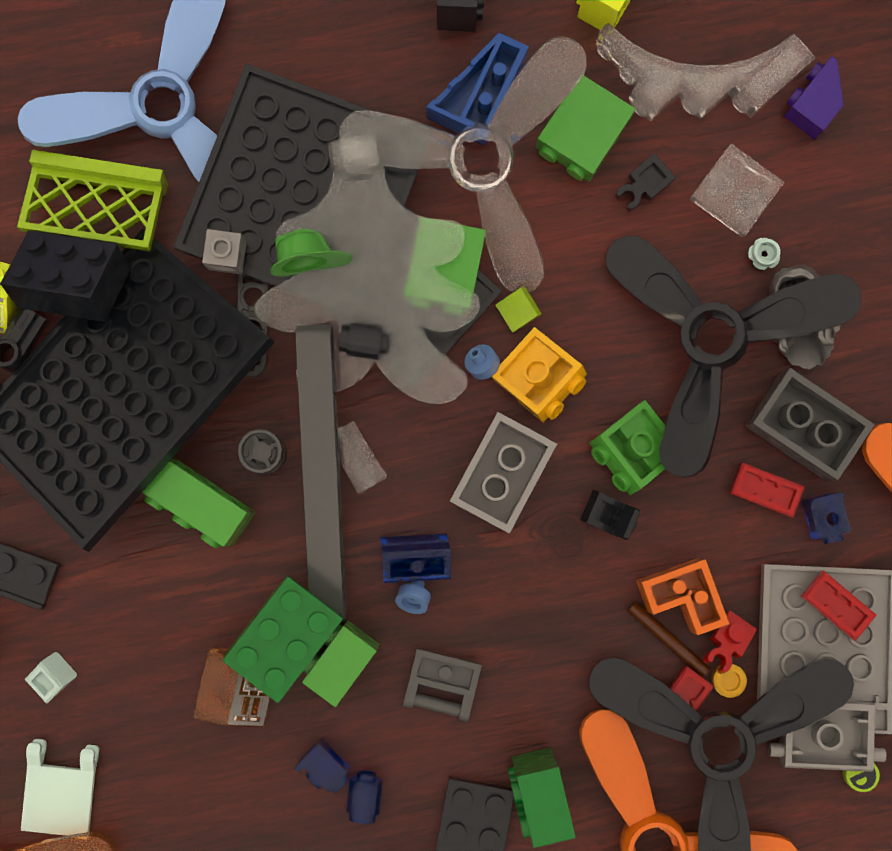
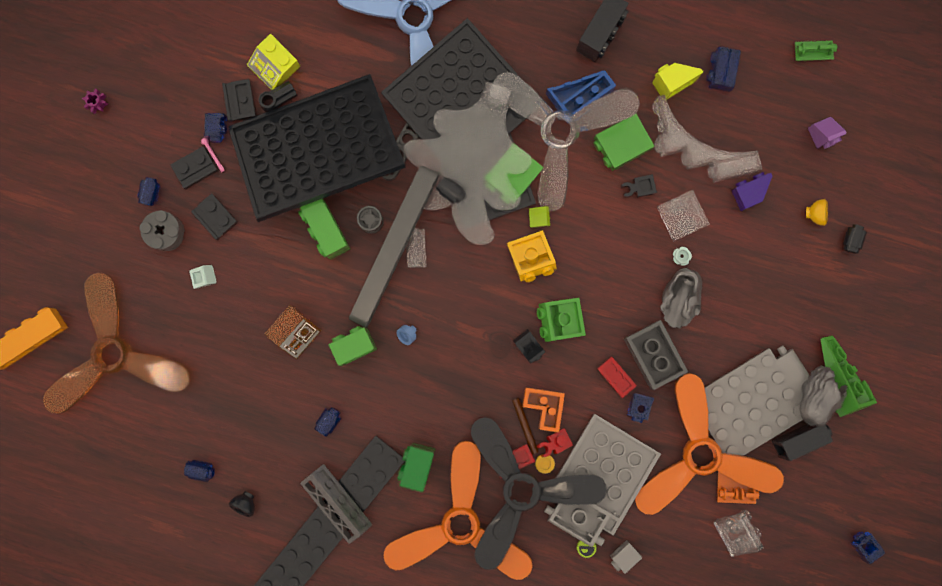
camera: 30 degrees right, 0 degrees up
(58, 796) = (175, 338): light aqua flag -> none
(66, 275) = (319, 78): black brick -> none
(104, 176) = (359, 32): lime fence -> none
(224, 251) = (405, 108): light grey brick -> none
(282, 638) = (330, 317): green brick -> none
(305, 251) = (445, 129): bright green piece -> none
(324, 767) = (316, 395): clear blue brick -> none
(415, 558) = (418, 314): clear blue brick -> none
(446, 674) = (402, 382): dark grey plate -> none
(482, 362) = (506, 233): medium blue tile -> none
(503, 472) = (486, 295): light grey brick -> none
(783, 315) = (669, 290): black piece -> none
(838, 605) = (620, 454): red plate -> none

